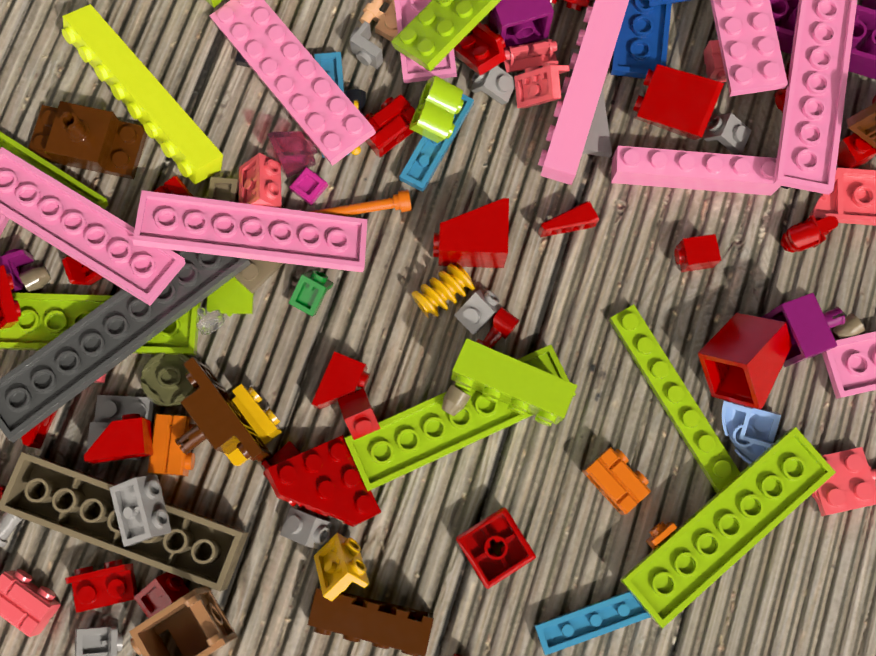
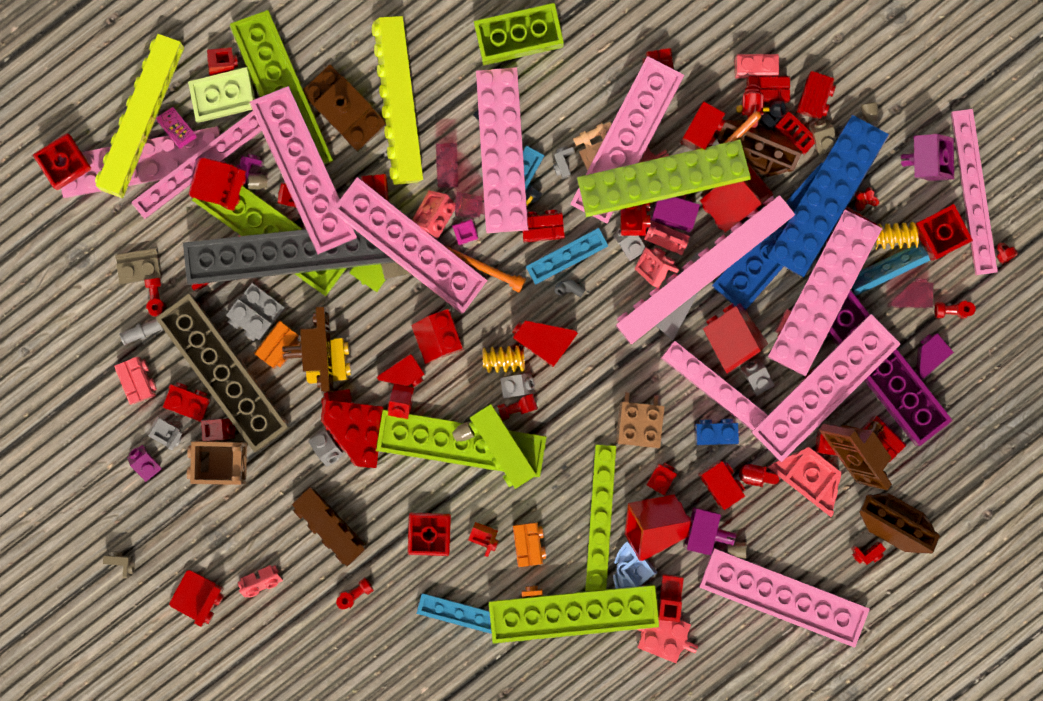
camera: 35 degrees right, 10 degrees up
(122, 440) = (252, 326): red slope -> none
(140, 509) = (238, 376): light grey bracket -> none
(165, 379) = (300, 302): olive tile -> none
(209, 321) = (347, 281): clear tile -> none
(223, 189) = (407, 202): dark tan bracket -> none
(240, 126) = (447, 165): none -> clear pink slope
(310, 291) = (421, 304): green bracket -> none
(340, 565) = (331, 483): yellow bracket -> none
(352, 310) = (437, 336): none -> red slope
(437, 110) = (576, 241): lime brick -> none
(461, 169) = (567, 287): none -> dark grey arm
(562, 506) = (484, 536): none -> red bracket
(575, 219) = (617, 368): red slope -> none
(646, 257) = (640, 423): none -> medium nougat container
(697, 253) = (678, 441): red brick -> none
(708, 305) = (661, 478): none -> red bracket
(733, 216) = (714, 434): none -> blue brick
(782, 265) = (722, 485): none -> red brick
(826, 437) = (670, 598): none -> red brick

